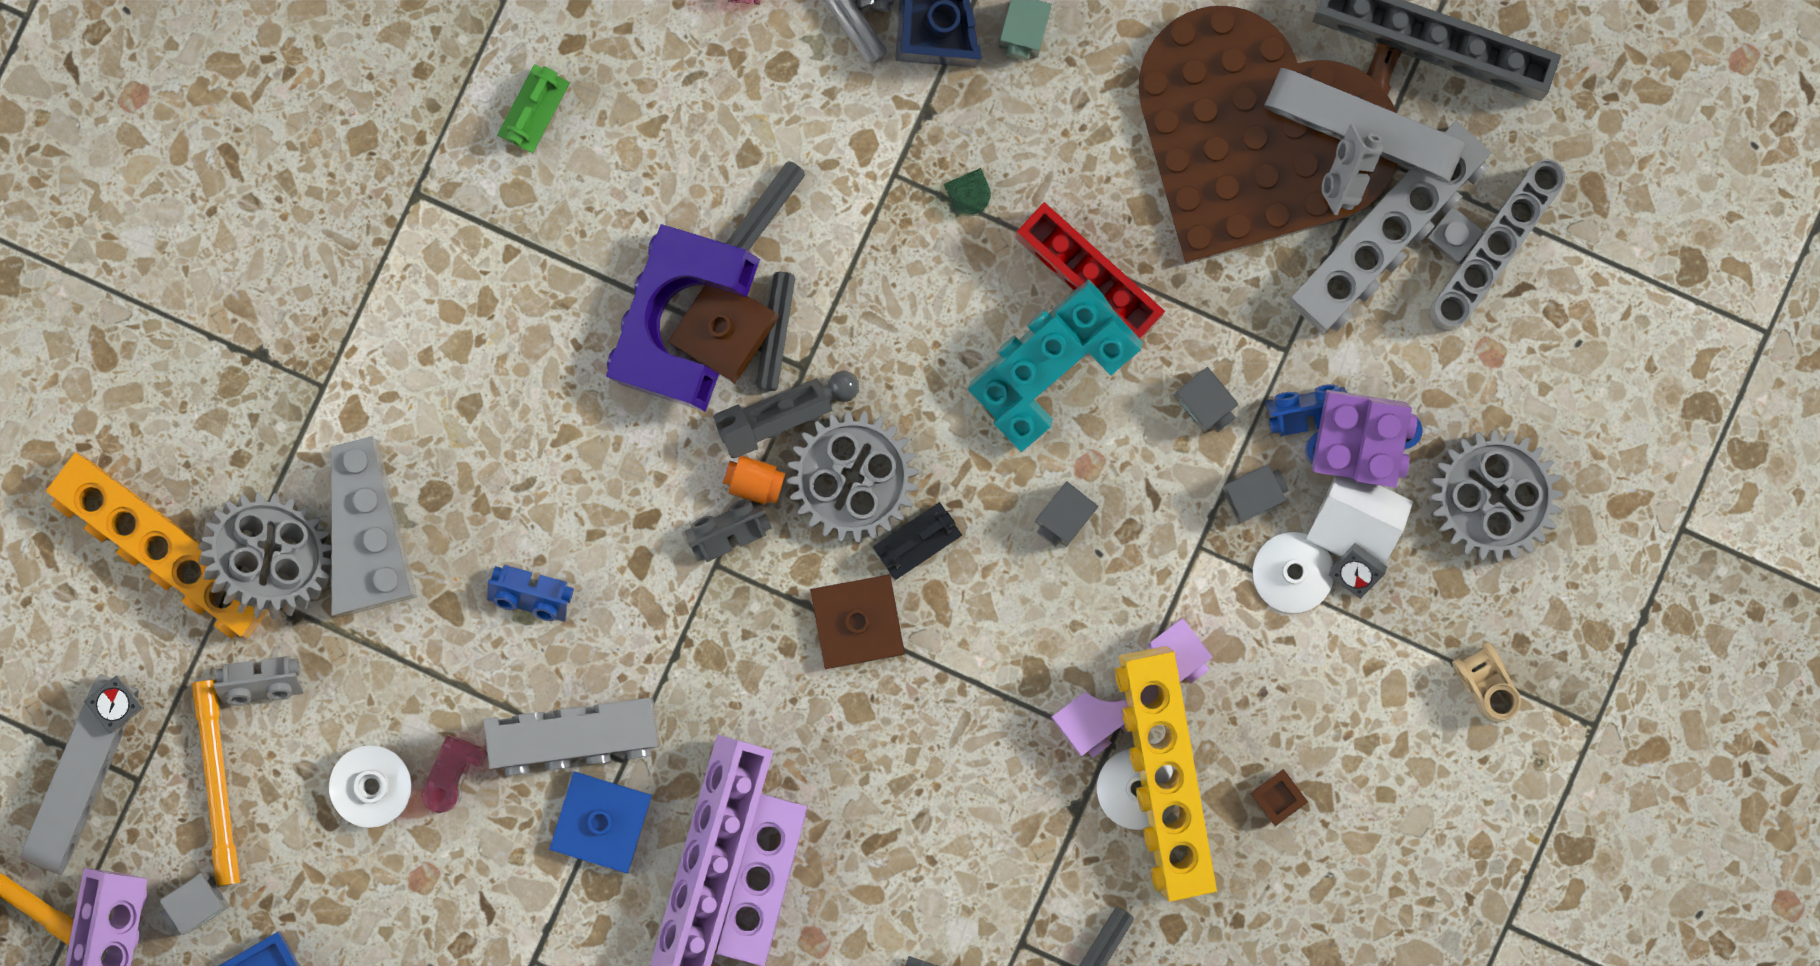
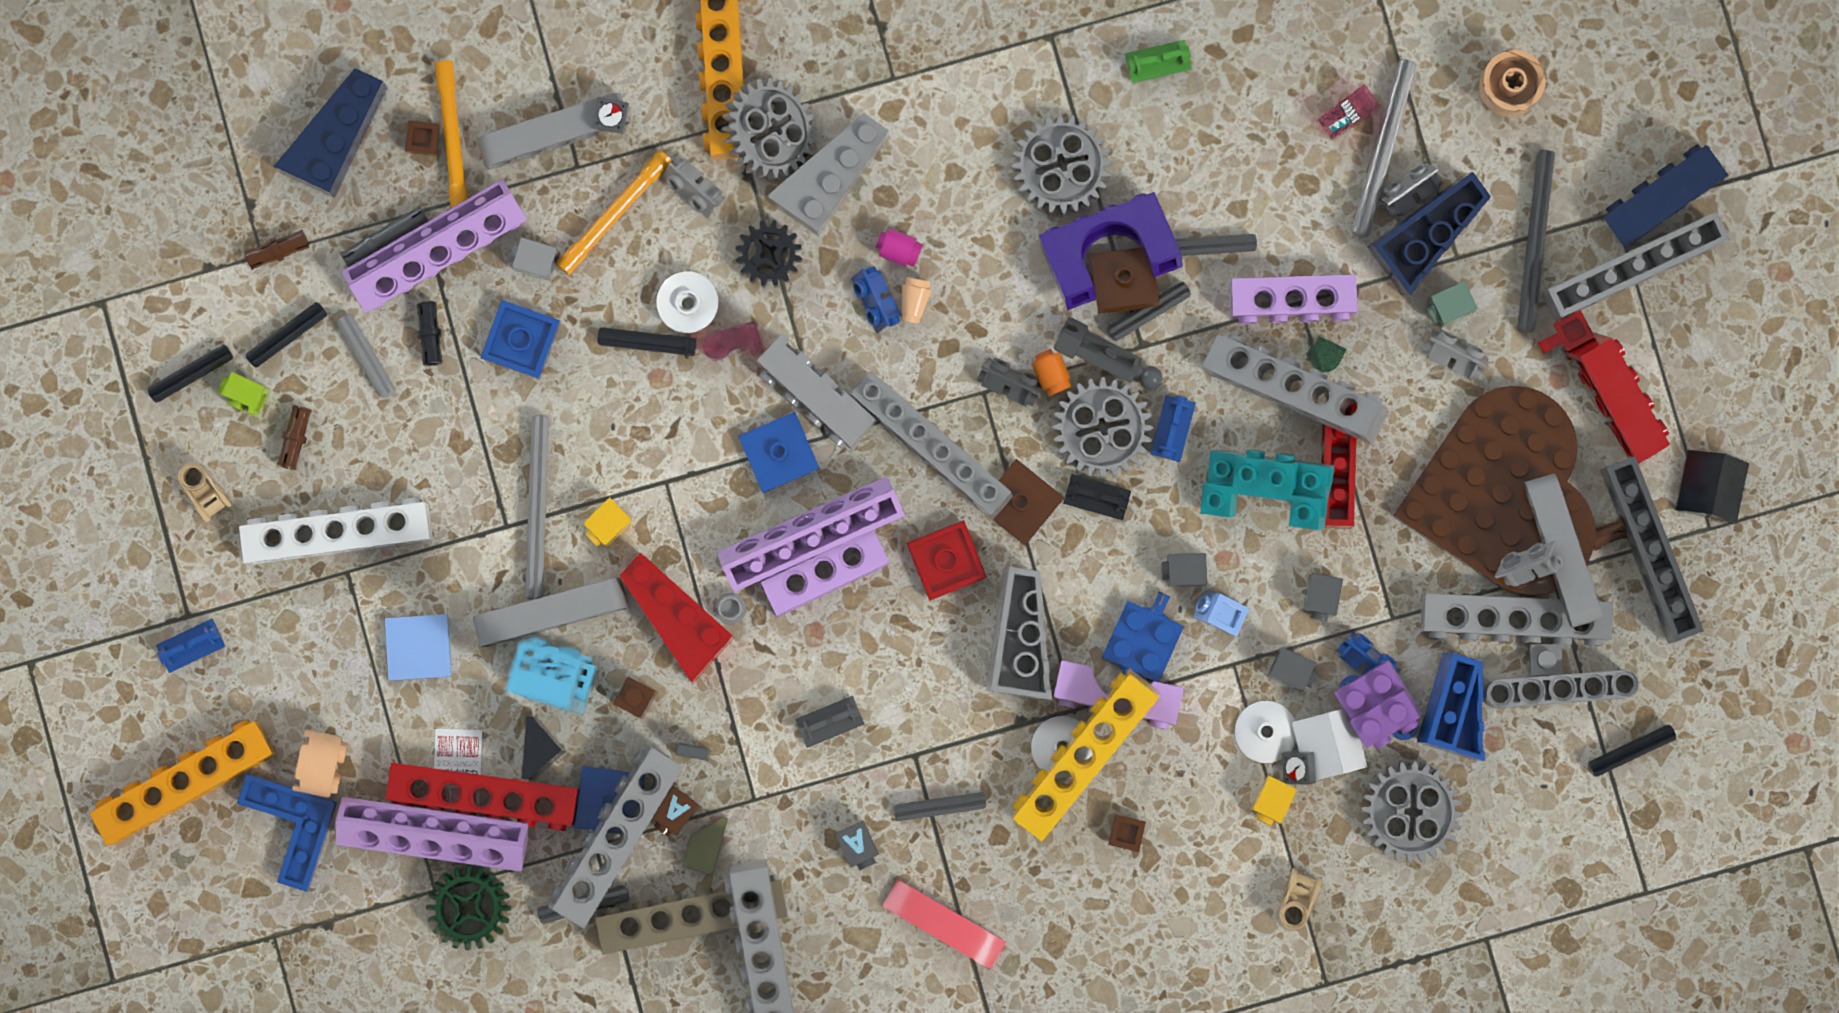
camera: 50 degrees right, 0 degrees up
(375, 860) = (647, 341): none -> black axle
(391, 682) = (756, 261): none -> black gear
(498, 526) = (898, 247): none -> dark pink brick
(519, 279) = (1052, 138): none -> light grey gear
(563, 554) = (914, 299): none -> light nougat cone
(724, 663) = (931, 445): none -> light grey brick
(853, 746) = (946, 560): none -> red plate
(912, 406) = (1173, 428): none -> blue hinge
(916, 122) = (1340, 287): none -> lavender brick
(994, 739) = (1019, 640): none -> light grey wedge
(1072, 217) = (1361, 425): none -> light grey brick
(1091, 56) = (1467, 358): none -> light grey hinge
(1099, 616) = (1143, 639): none -> blue plate
(1137, 516) = (1220, 612): none -> light blue bracket
(1369, 624) = (1273, 801): none -> yellow brick
(1430, 365) = (1455, 708): none -> blue wedge
(1616, 226) = (1632, 750): none -> black axle

